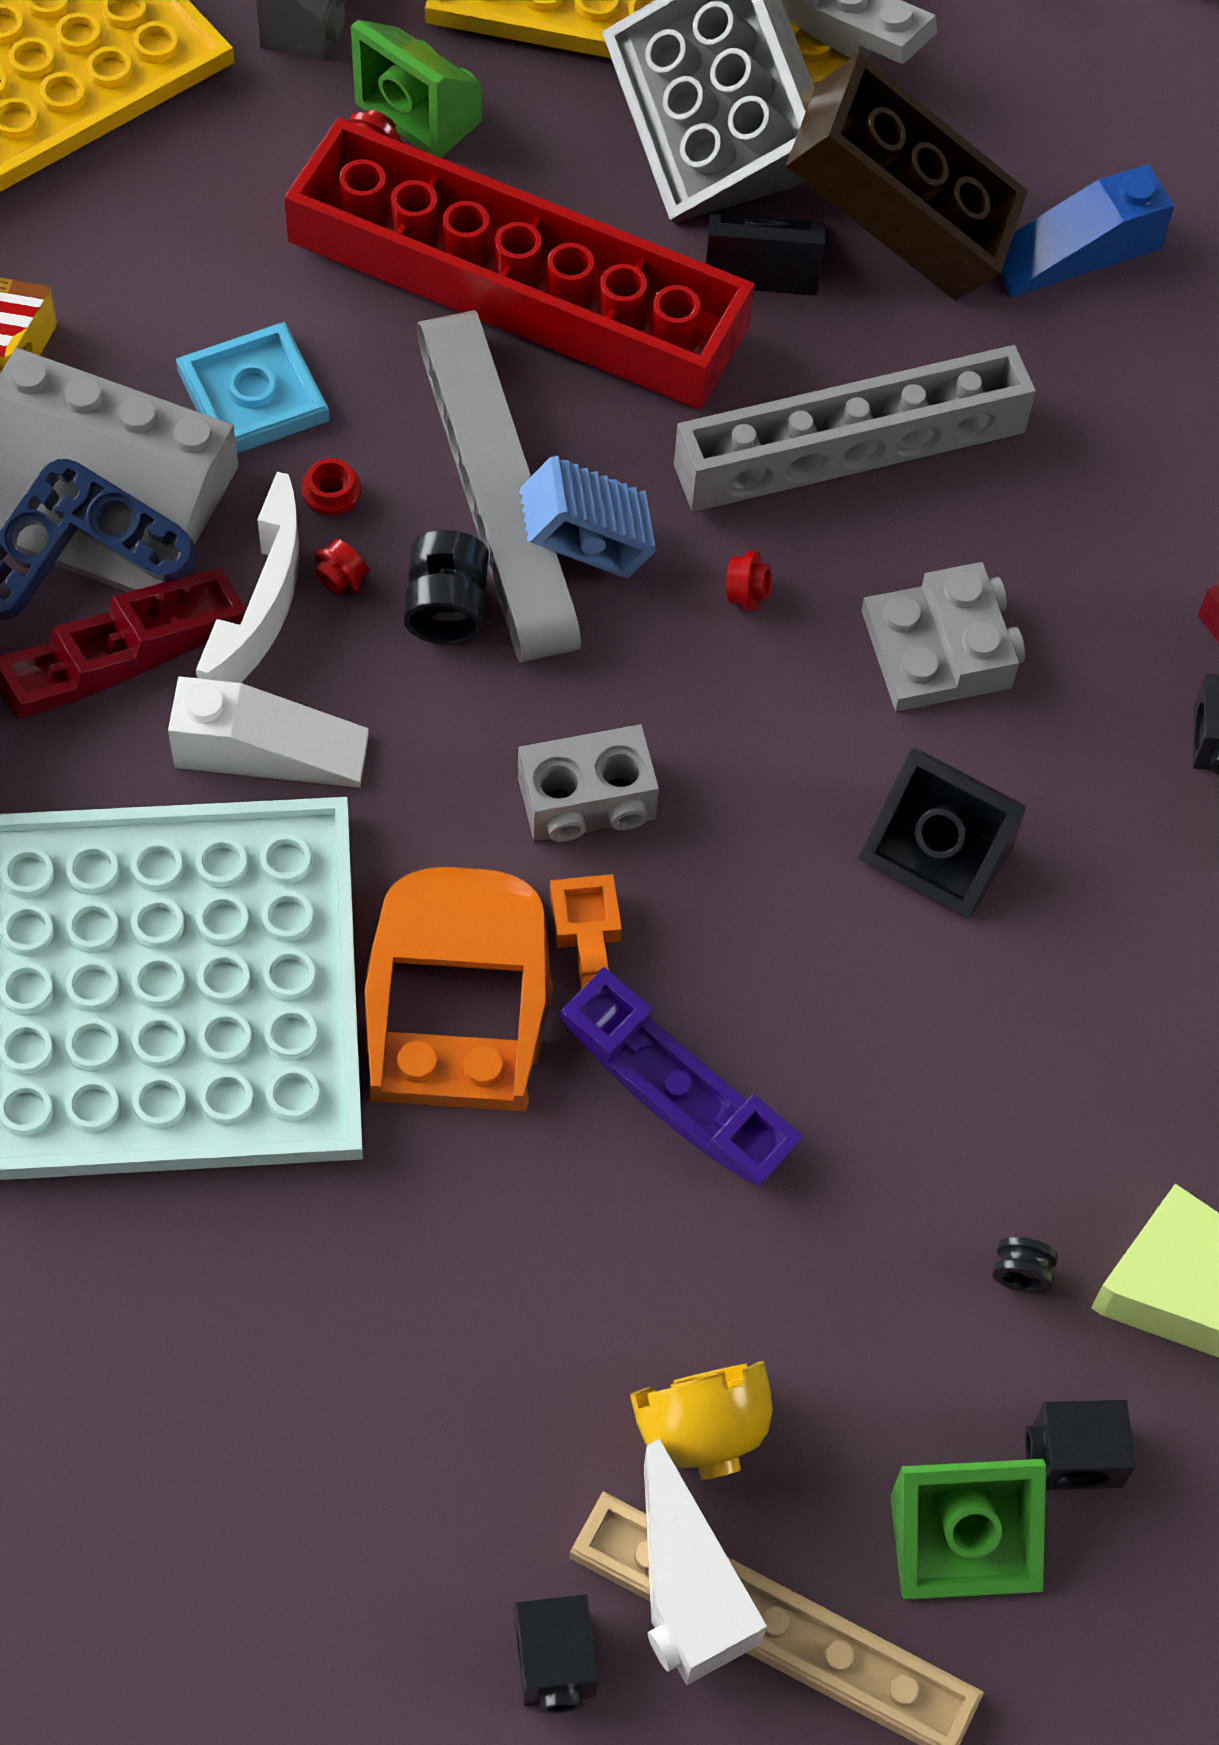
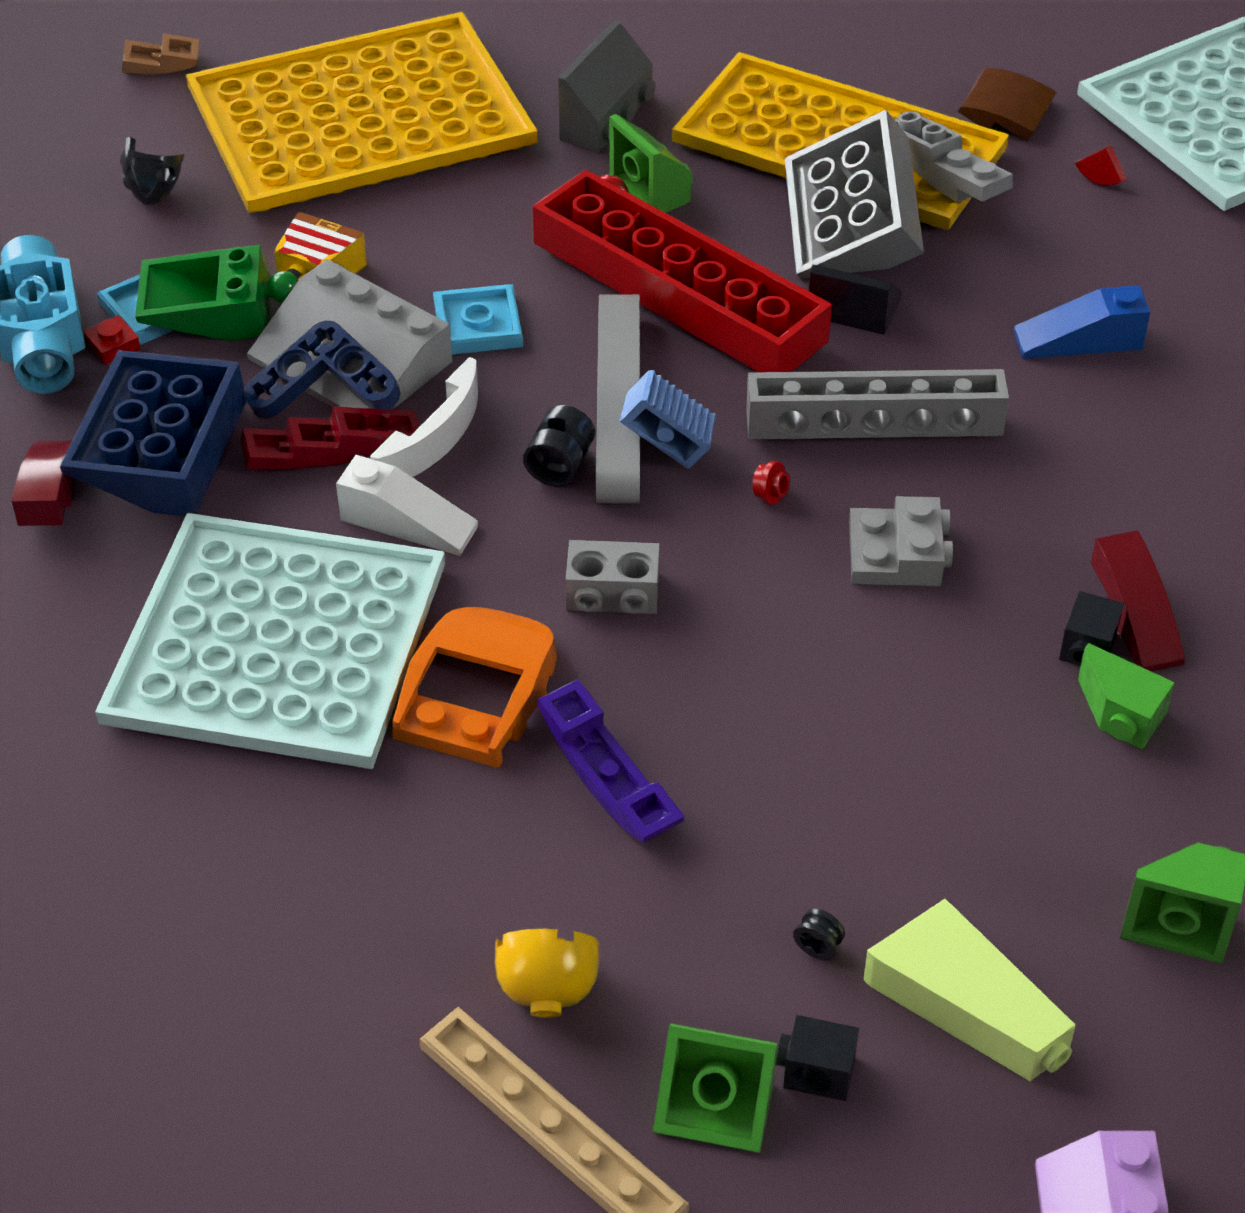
camera: 20 degrees right, 15 degrees down
(331, 474) = (506, 379): red plate -> none
(340, 567) = (494, 425): red plate -> none
(556, 1653) = (383, 1096): black brick -> none
(587, 918) = (582, 654): orange plate -> none
(695, 1593) = (491, 1070): white slope -> none
(907, 177) = (960, 261): dark brown brick -> none
(943, 832) = (856, 653): black slope -> none

